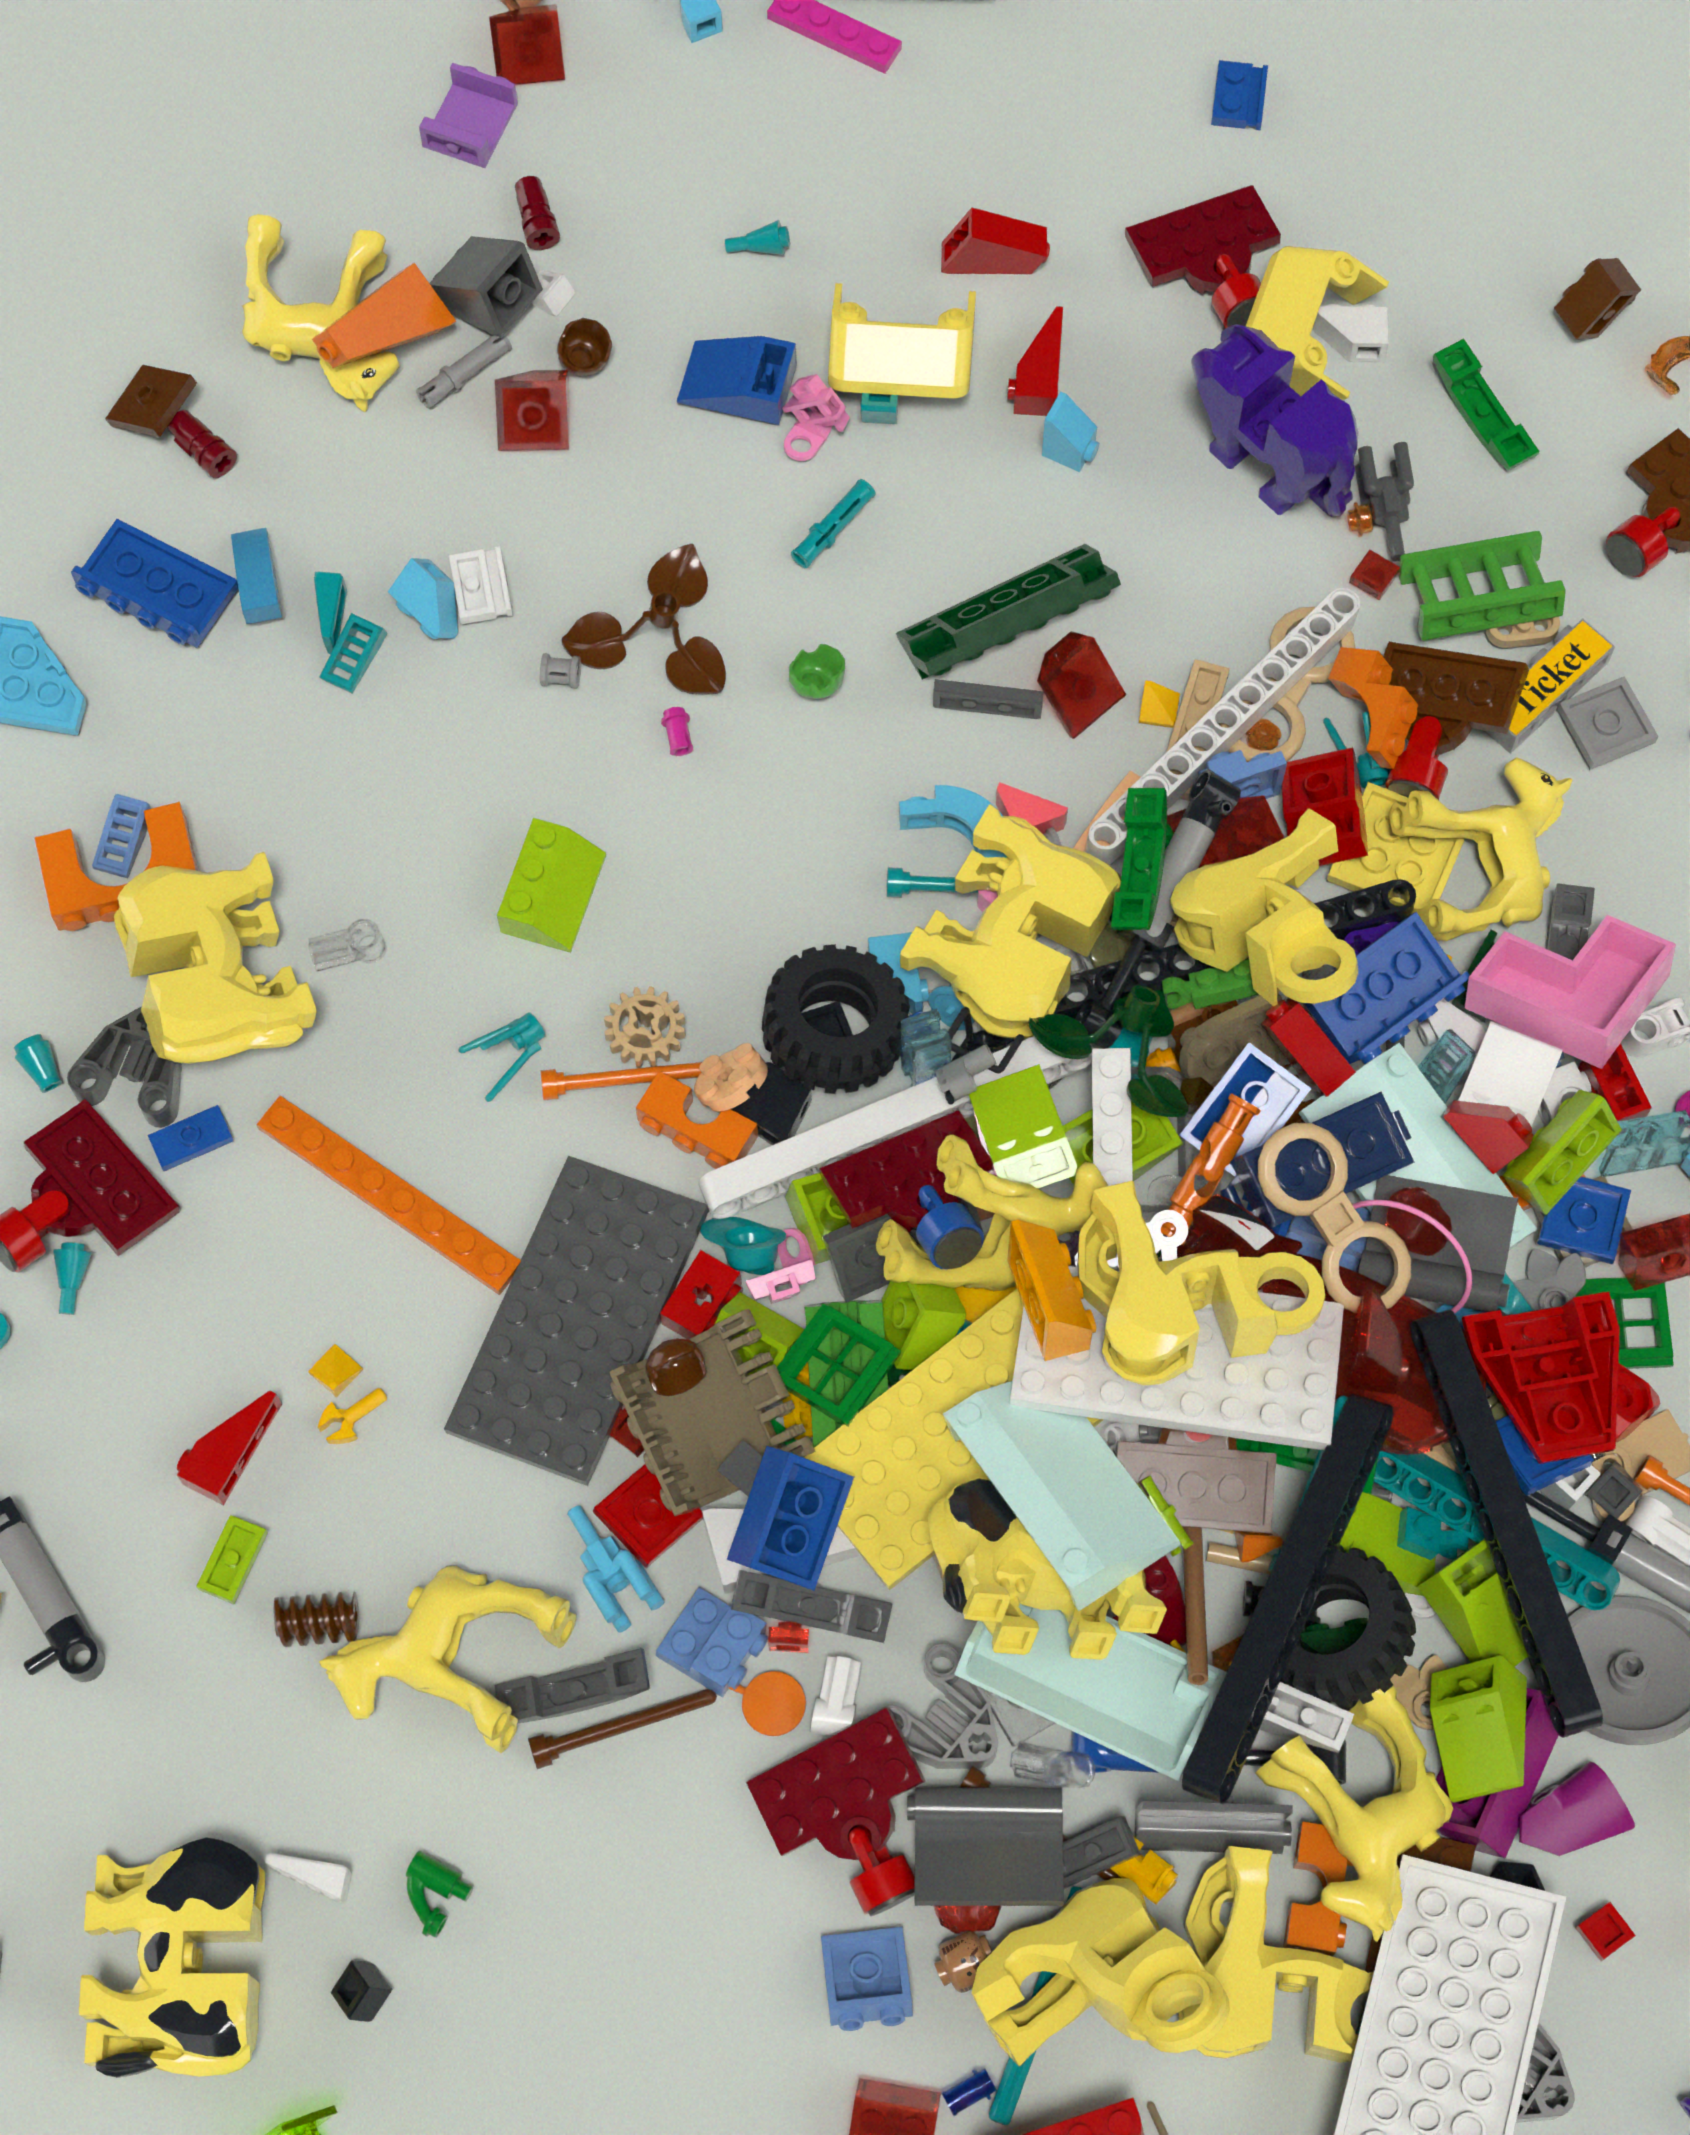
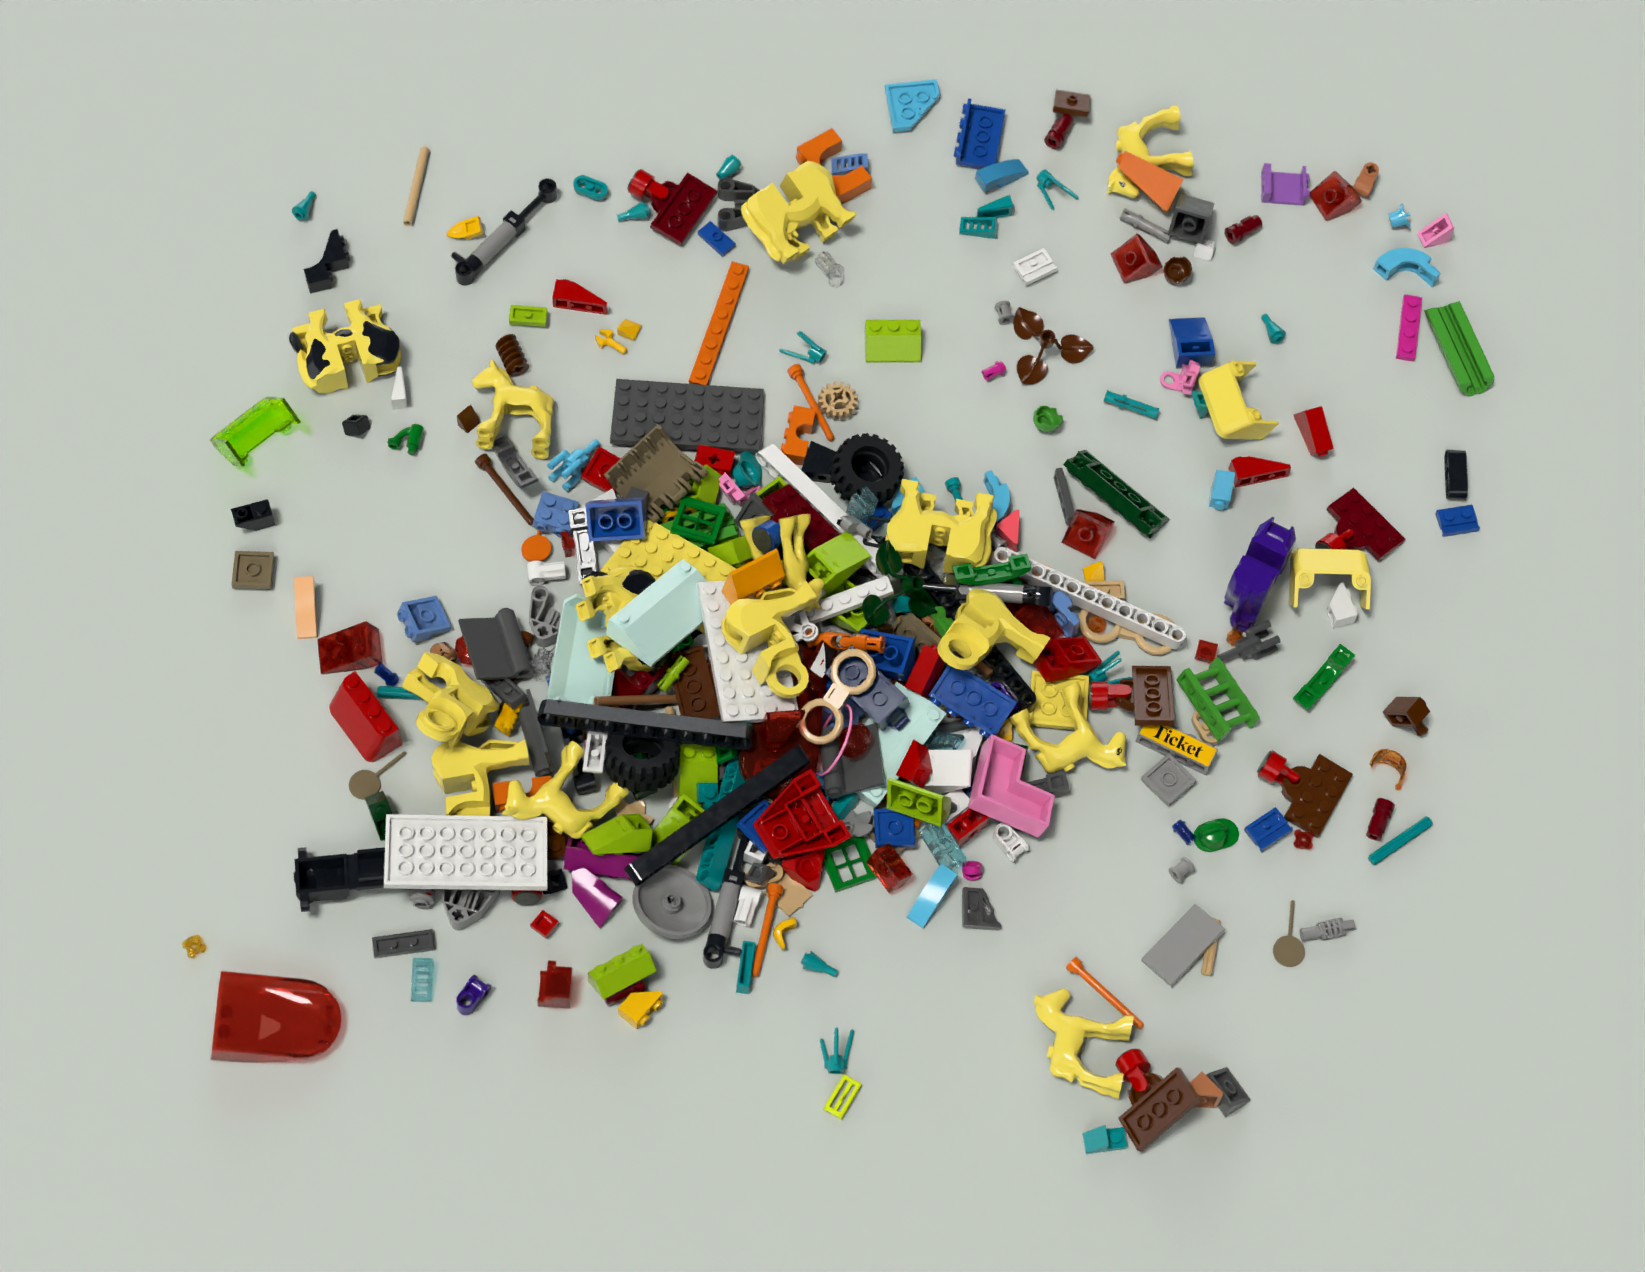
camera: 65 degrees right, 5 degrees down
(299, 499) = (1047, 180): none -> teal plant
(428, 596) = (1017, 245): medium azure slope -> none
(433, 1753) = (467, 419): none -> reddish brown slope
(675, 1367) = (672, 453): reddish brown hair -> none
(729, 1077) = (824, 438): light nougat plate -> none
(844, 1800) = (499, 583): dark red plate -> none
(1153, 62) = (1456, 474): none -> black beam
(1392, 710) = (1125, 668): orange arch -> none

